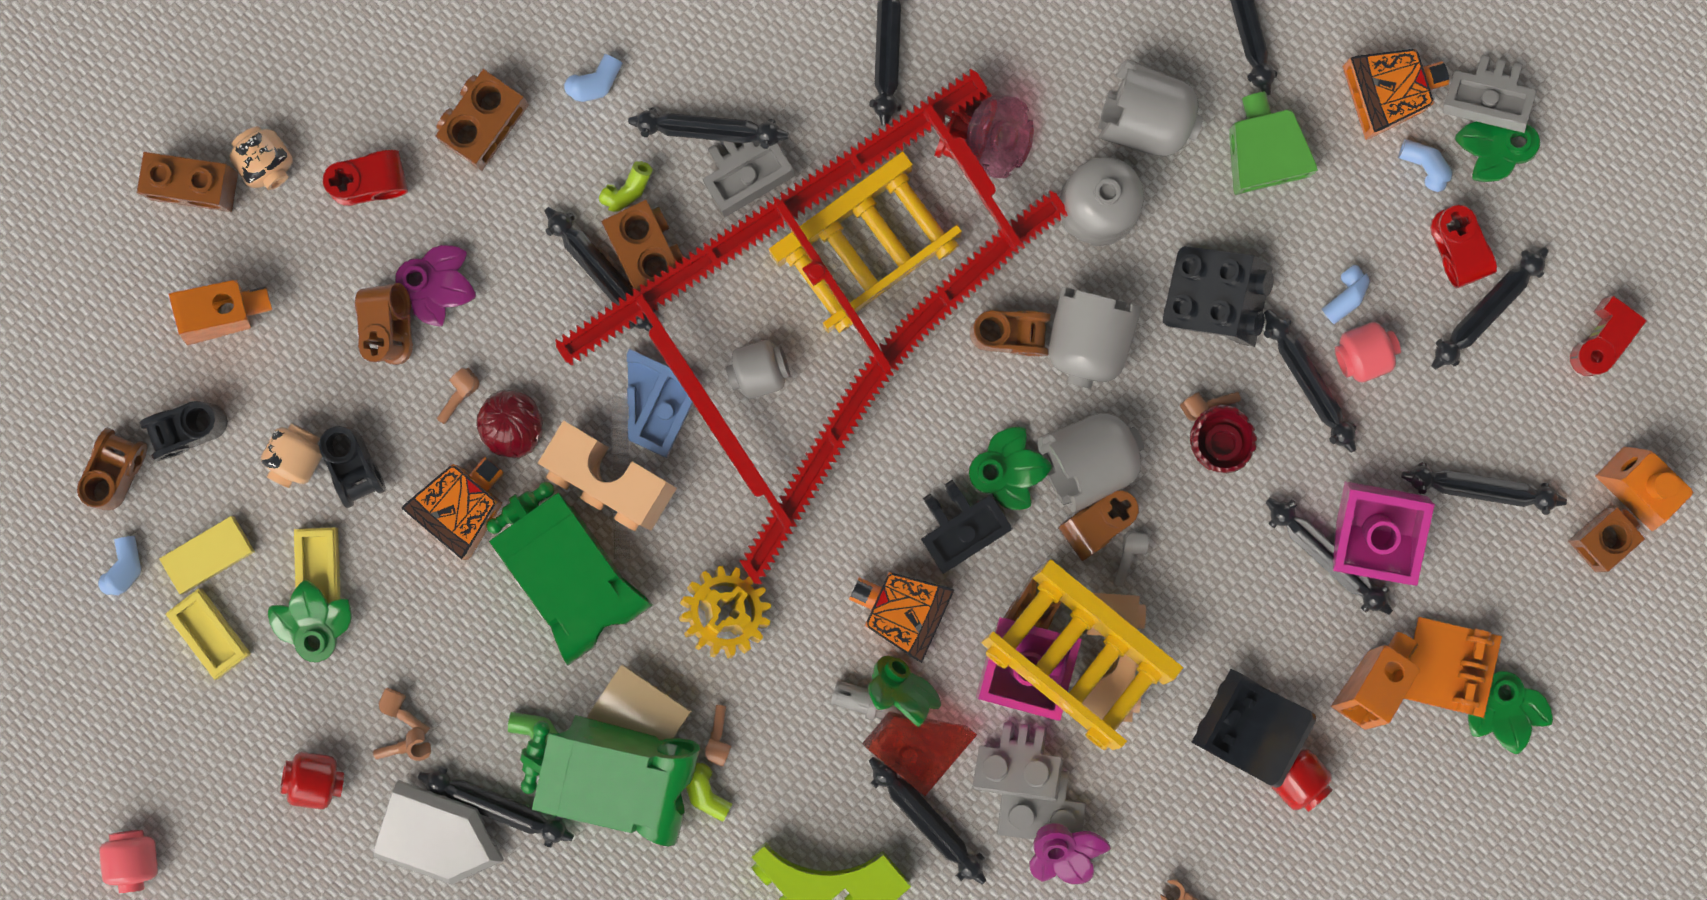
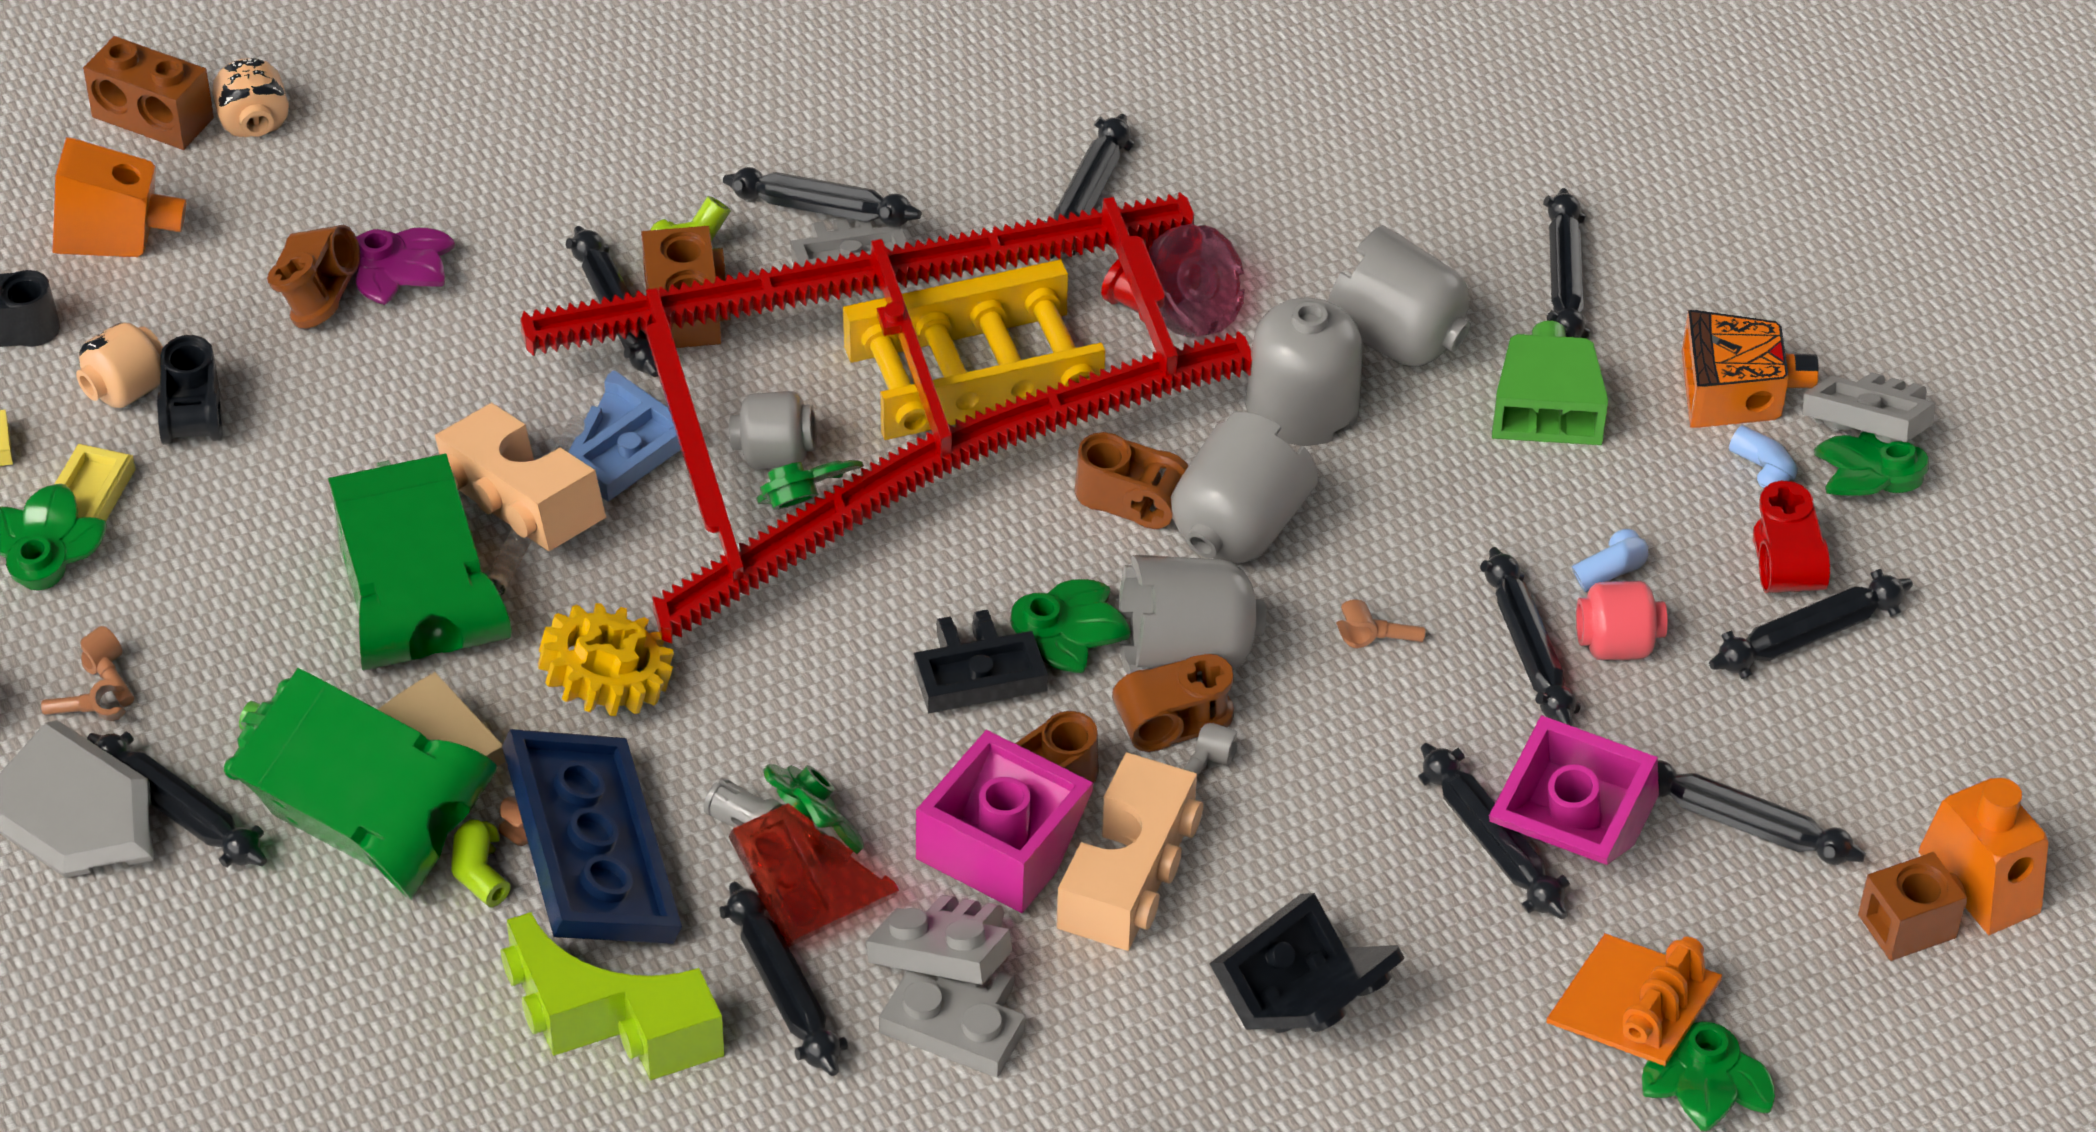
camera: 15 degrees right, 40 degrees down
(372, 178) = (369, 144): red piece -> none
(458, 506) = (290, 466): torso -> none
(465, 384) = (381, 366): nougat hand -> none
(491, 125) = (541, 127): dark orange brick -> none
(510, 424) = (414, 409): dark red hair -> none
(596, 84) = (699, 135): light blue arm -> none
(772, 762) = (591, 837): none -> dark blue plate
(796, 427) = (794, 485): none -> green plate
(904, 611) = (859, 727): torso -> none
(1065, 854) = (971, 1068): magenta plate -> none
(1119, 640) = (1113, 745): yellow fence -> none
(1218, 294) = (1447, 503): black bracket -> none
(1223, 439) = (1381, 651): dark red hair -> none
(1305, 783) = (1360, 1062): red head -> none
(1379, 683) = (1510, 974): orange torso -> none
(1608, 339) = (1973, 691): red leg -> none

